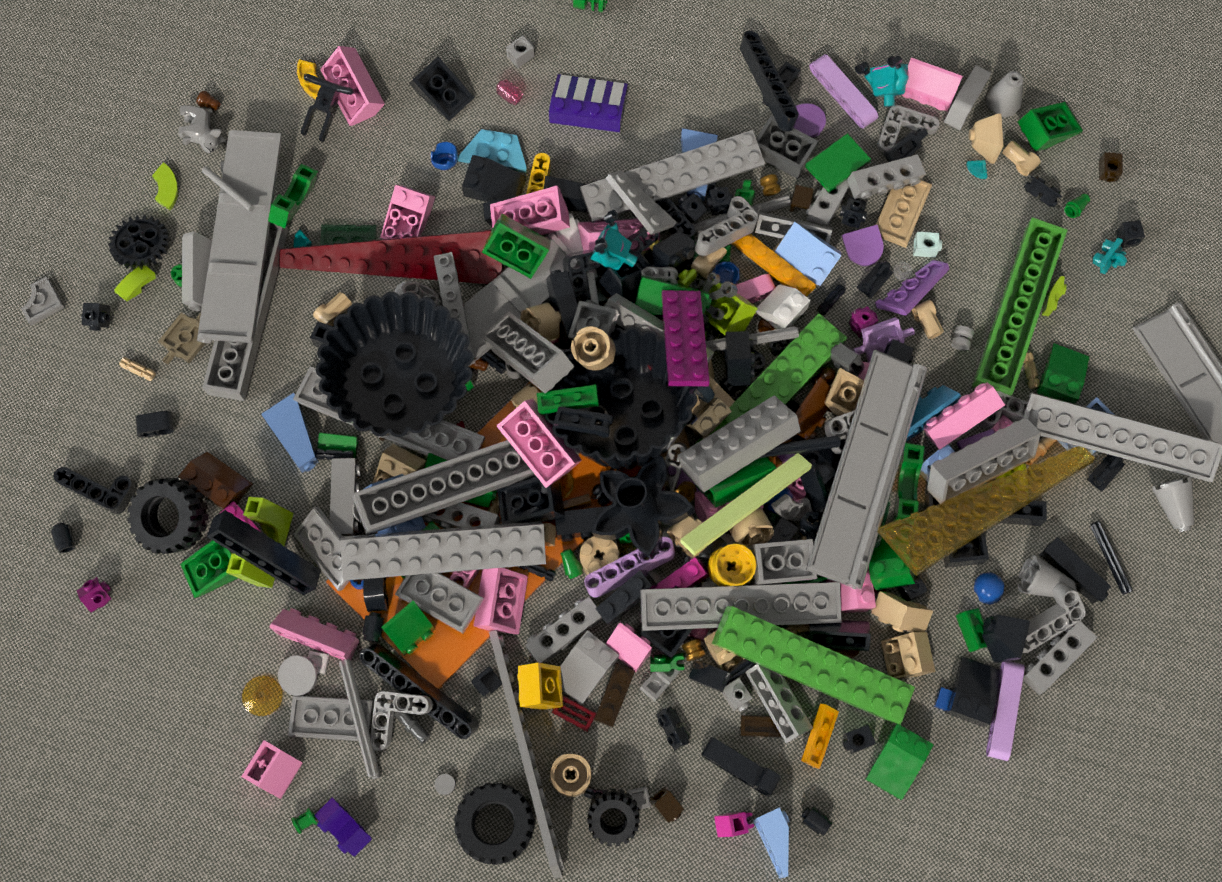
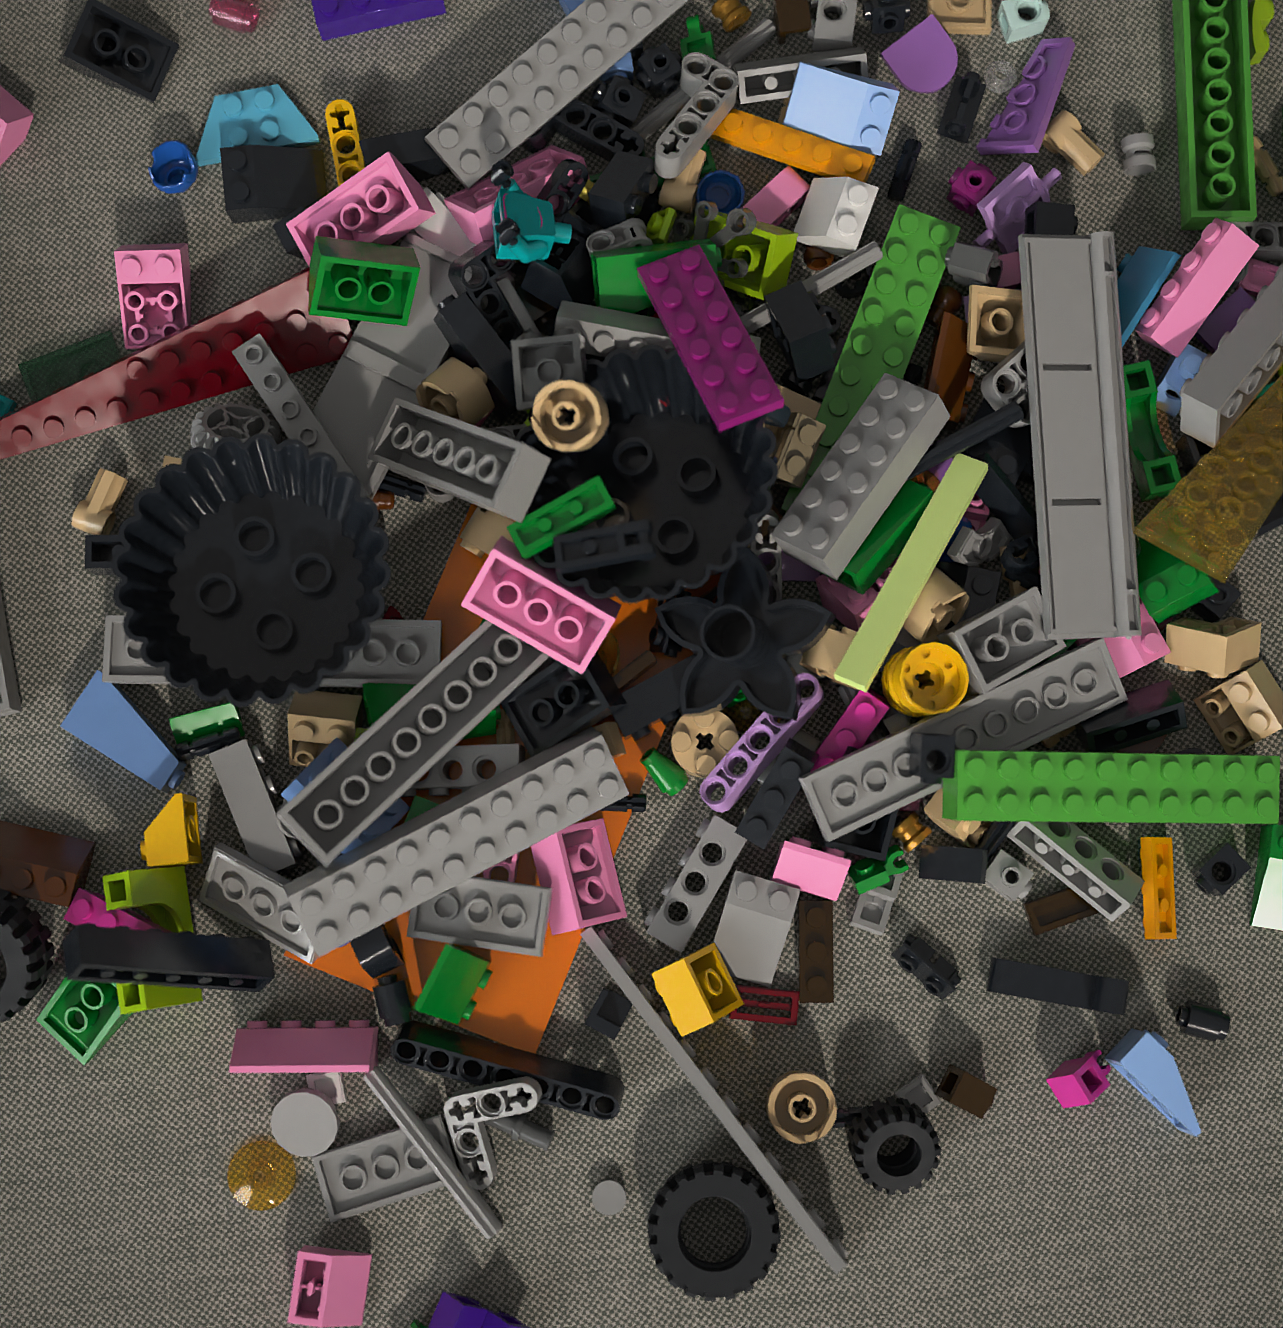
camera: 20 degrees left, 10 degrees up
(295, 493) = (173, 835): none -> yellow slope
(642, 206) = (545, 133): light grey wing -> none
(688, 488) = (797, 574): pearl gold wheel -> none
(726, 602) = (921, 746): none -> black brick

